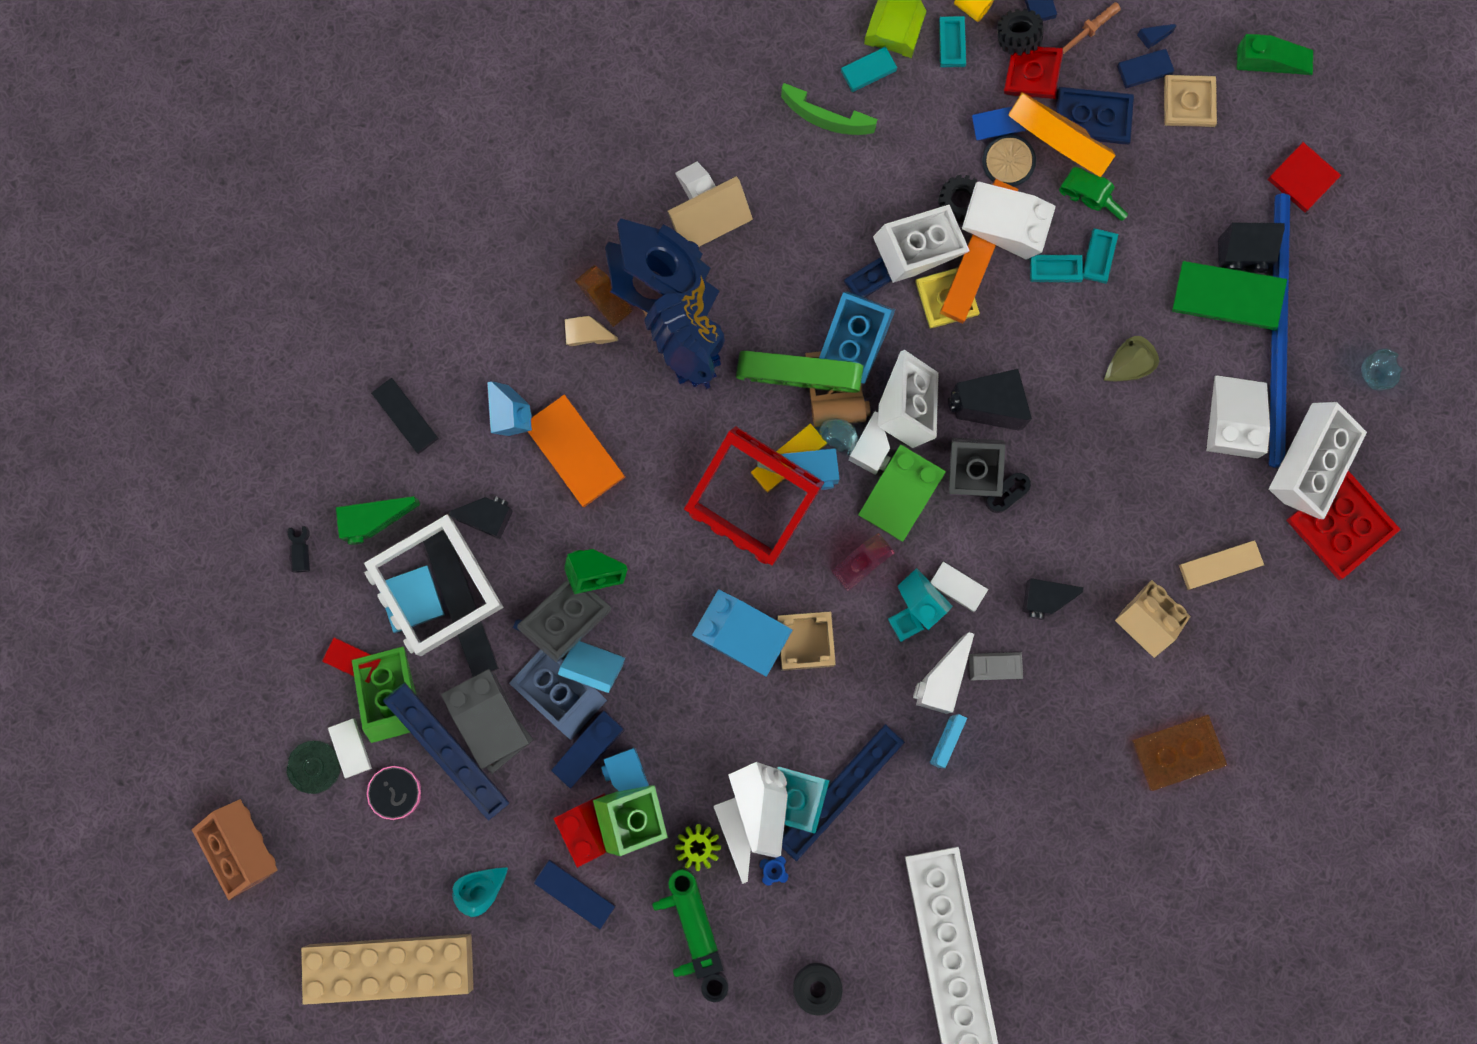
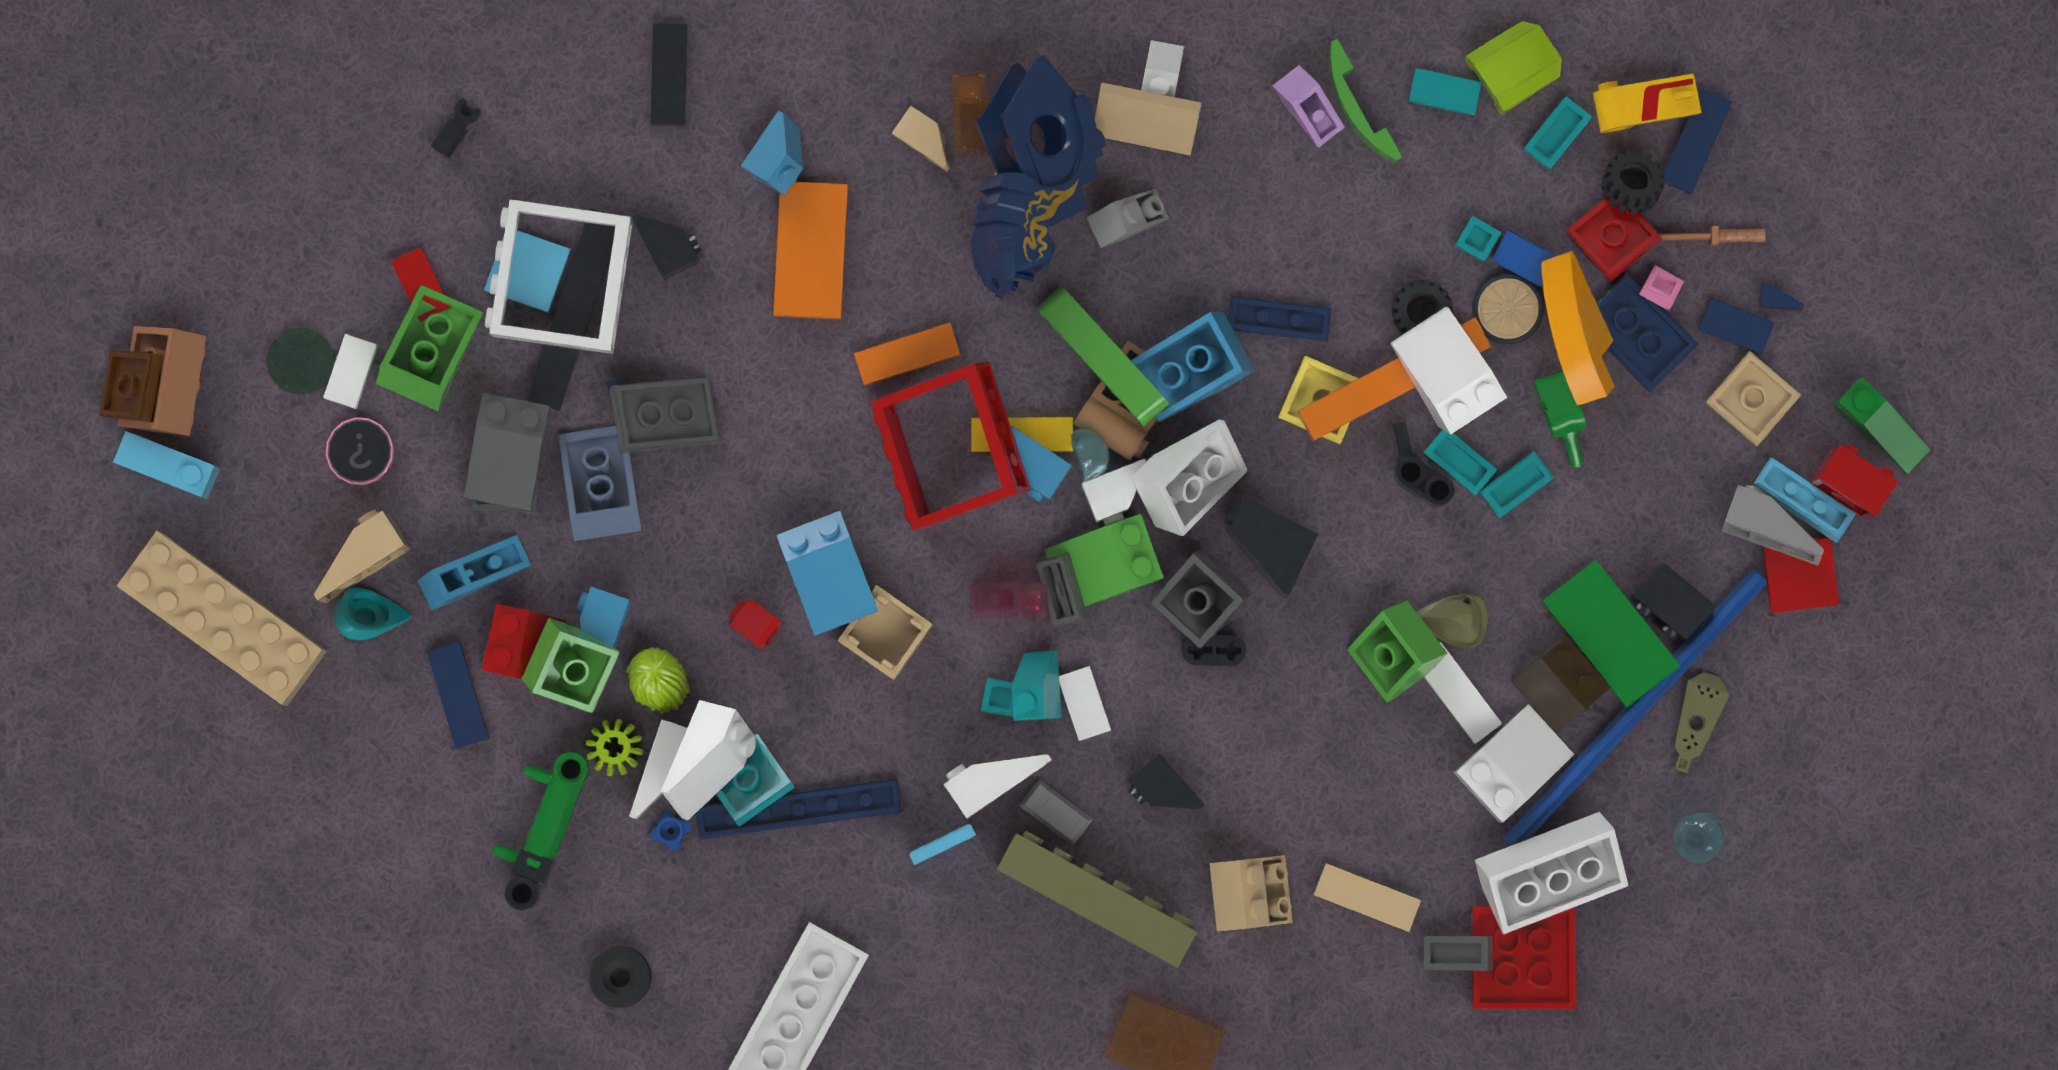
camera: 35 degrees right, 5 degrees up
(215, 868) = (130, 385): none -> reddish brown tile
(279, 899) = (166, 465): none -> medium azure slope
(368, 519) = (547, 154): green slope -> none
(444, 855) = (366, 550): none -> tan slope
(446, 751) = (444, 453): dark blue tile -> none
(523, 810) = (473, 572): none -> dark azure slope
(588, 749) = (584, 563): dark blue slope -> none
(592, 666) = (653, 485): medium azure tile -> none
(593, 570) = (730, 390): green slope -> none
(681, 465) = (907, 354): none -> orange tile
(691, 783) = (658, 680): none -> lime hair
(722, 699) = (754, 623): none -> red slope
(746, 282) = (1127, 217): none -> light grey slope
(797, 135) = (1308, 105): none -> lavender slope
(894, 522) = (1066, 588): none -> dark grey tile
(920, 242) = (1337, 323): white slope -> none
(958, 134) = (1477, 239): none -> teal plate
(1045, 292) = (1426, 476): none -> black beam
(1075, 696) = (1097, 900): none -> olive brick
(1086, 79) = (1661, 287): none -> bright pink tile
(1116, 404) = (1396, 650): none -> bright green slope
(1169, 402) = (1462, 699): none -> white tile
(1226, 346) = (1561, 684): none -> dark brown slope
(1265, 159) = (1766, 523): none -> light grey slope
(1269, 132) = (1804, 500): none -> medium azure tile
(1293, 95) = (1854, 481): none -> red container
(1304, 553) = (1458, 953): none -> dark grey tile
(1320, 295) = (1704, 707): none -> olive piece

